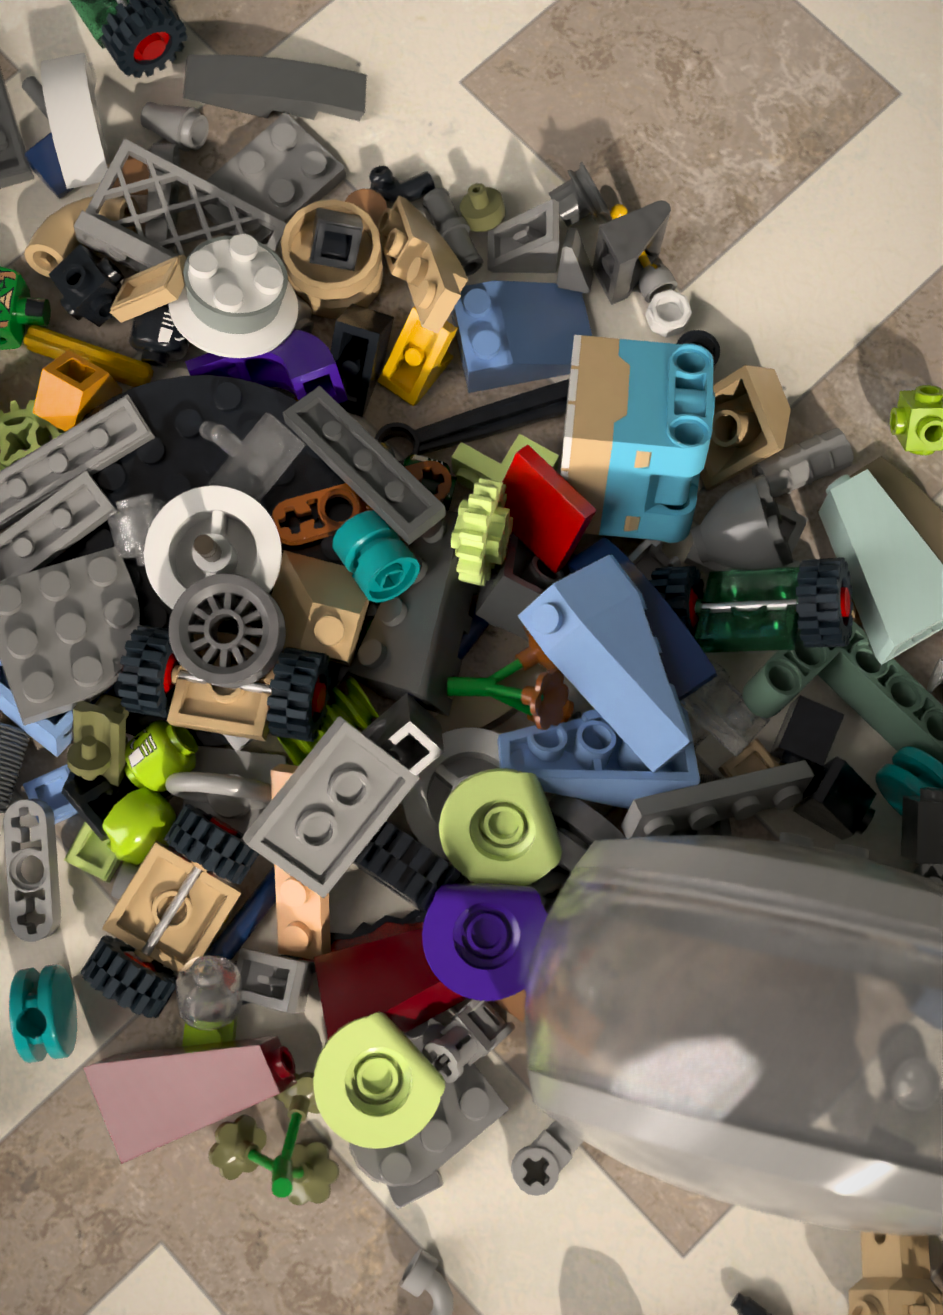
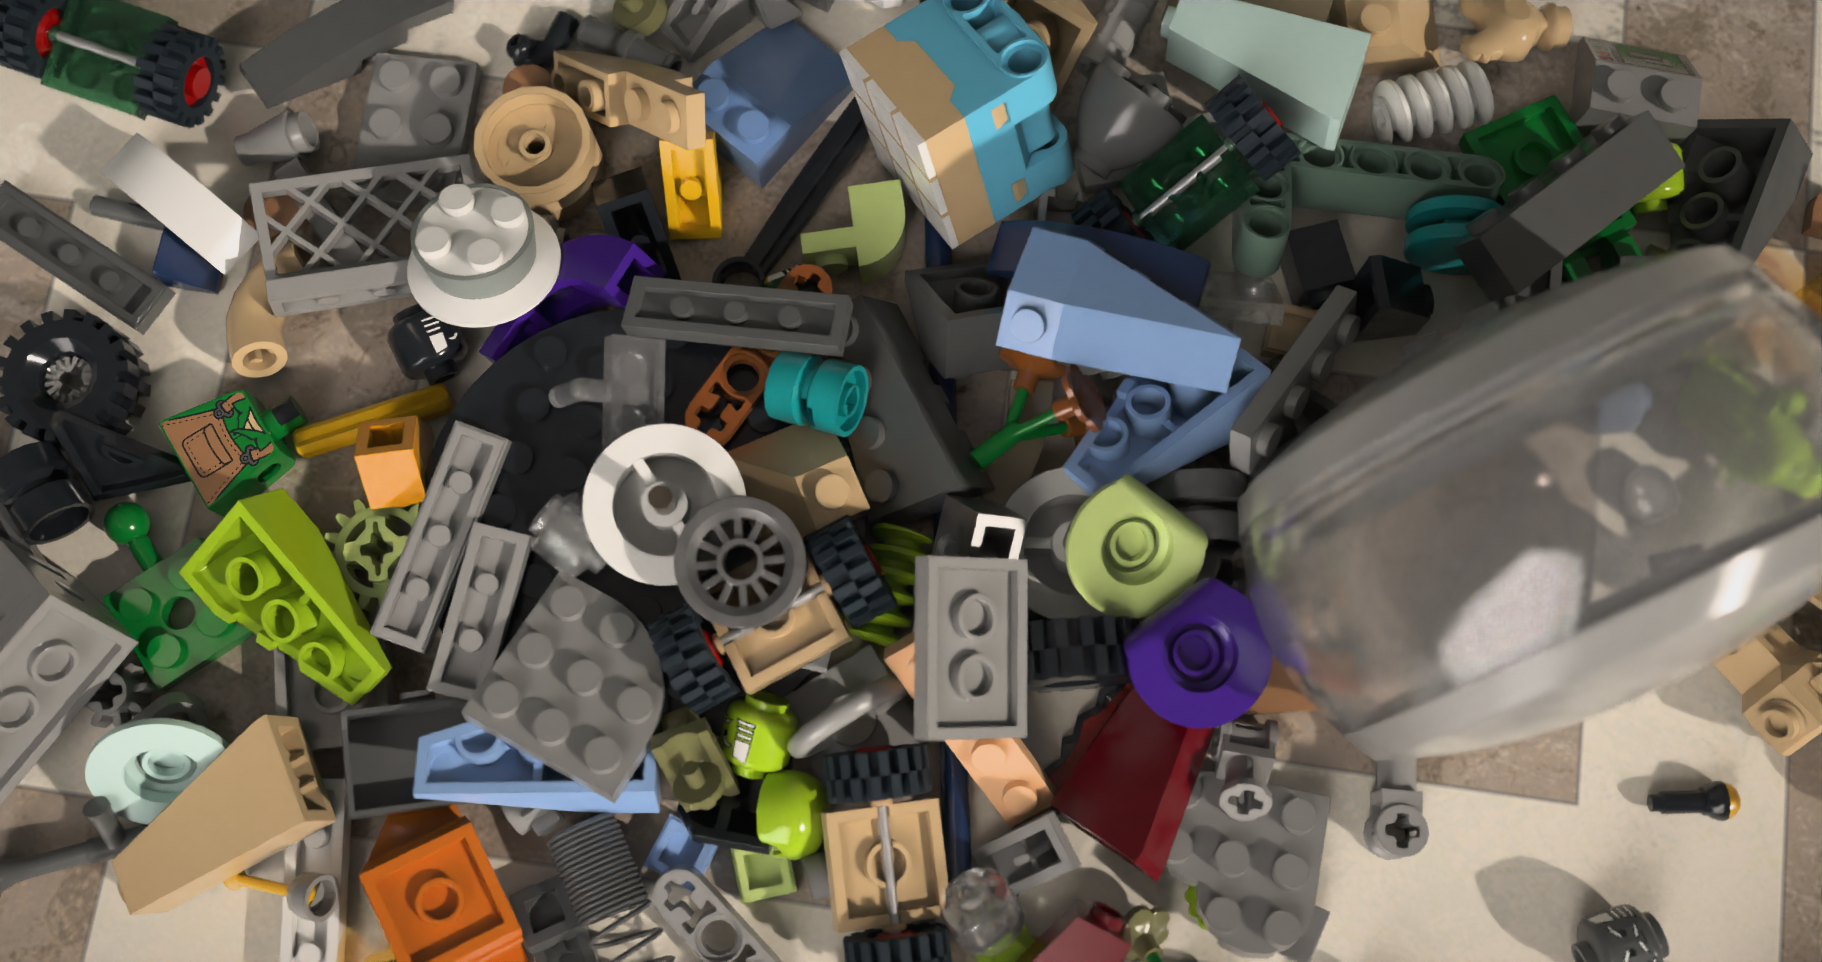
camera: 35 degrees left, 0 degrees up
(94, 291) = (323, 351): black brick -> none
(150, 289) = (392, 306): tan tile -> none
(335, 239) = (534, 130): black slope -> none
(375, 1084) = (1207, 867): yellowish green hat -> none
(481, 531) = (897, 295): yellowish green gear -> none
(545, 508) = (933, 234): red tile -> none

